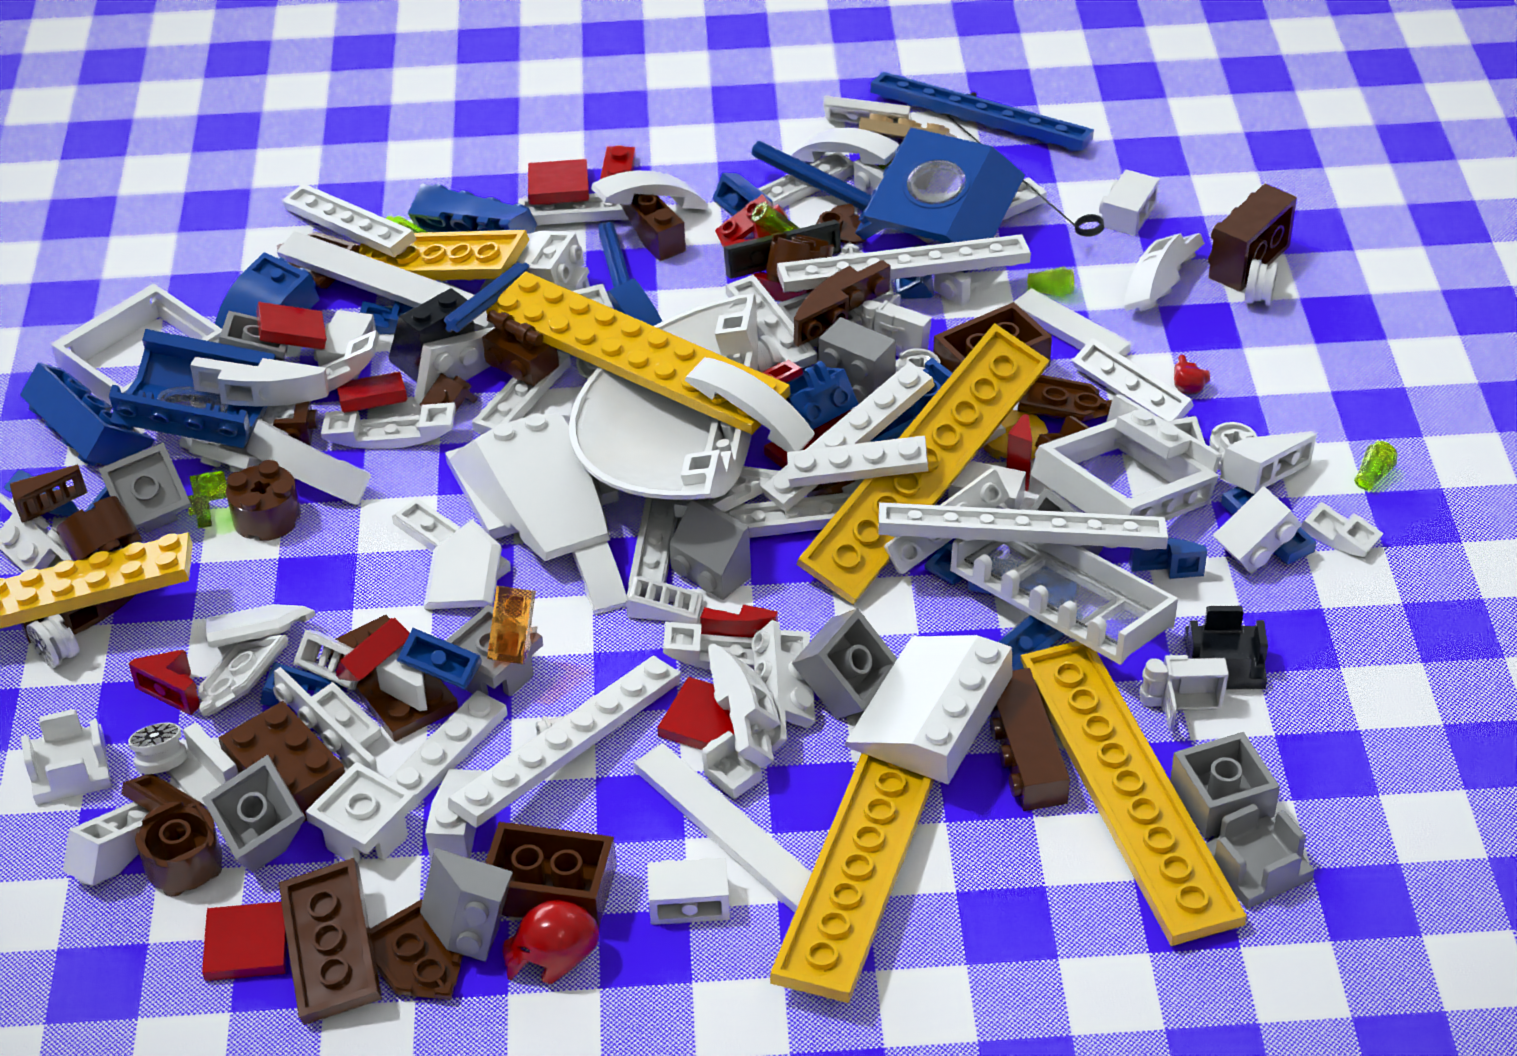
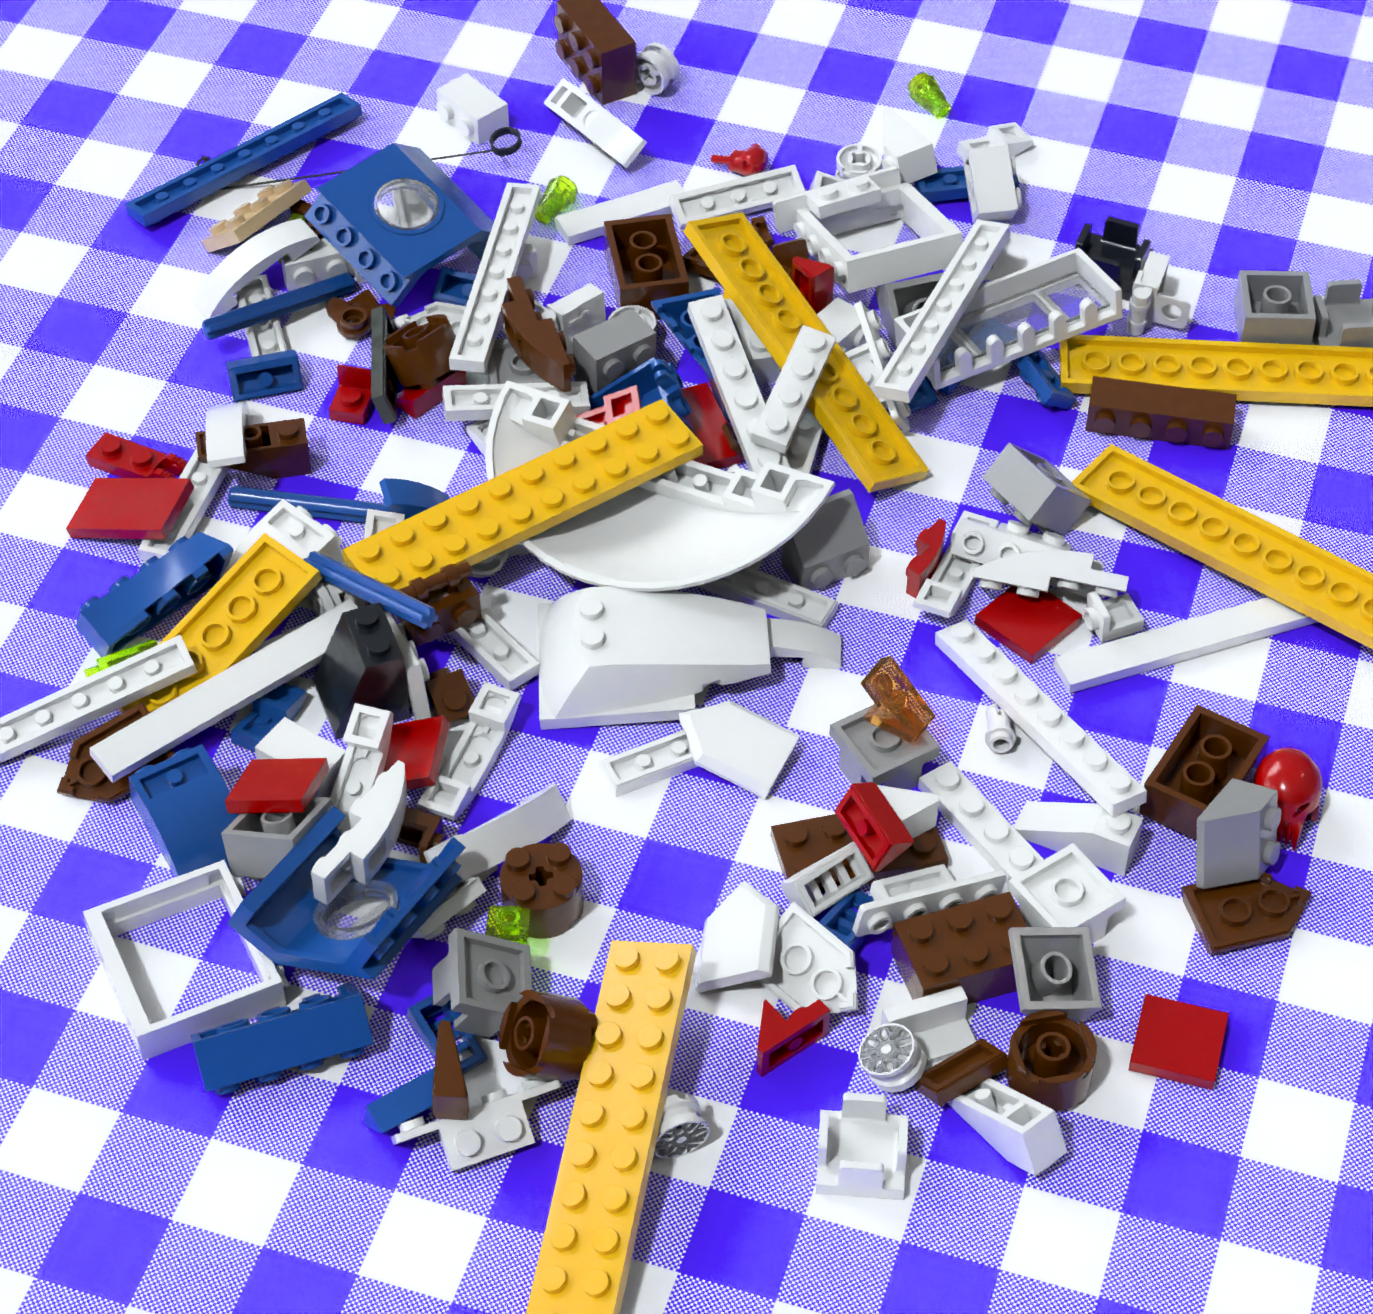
camera: 70 degrees left, 5 degrees up
(329, 941) = (1220, 963): reddish brown plate -> none
(439, 658) = (912, 771): blue slope -> none
(644, 597) = (850, 626): white slope -> none
(688, 891) = (1251, 685): white brick -> none
(741, 223) = (315, 379): red bracket -> none
(755, 398) = (645, 435): white slope -> none
(771, 219) = (349, 353): clear neon green cylinder -> none
(852, 109) = (187, 238): white tile -> none
(934, 703) = (1119, 444): white slope -> none

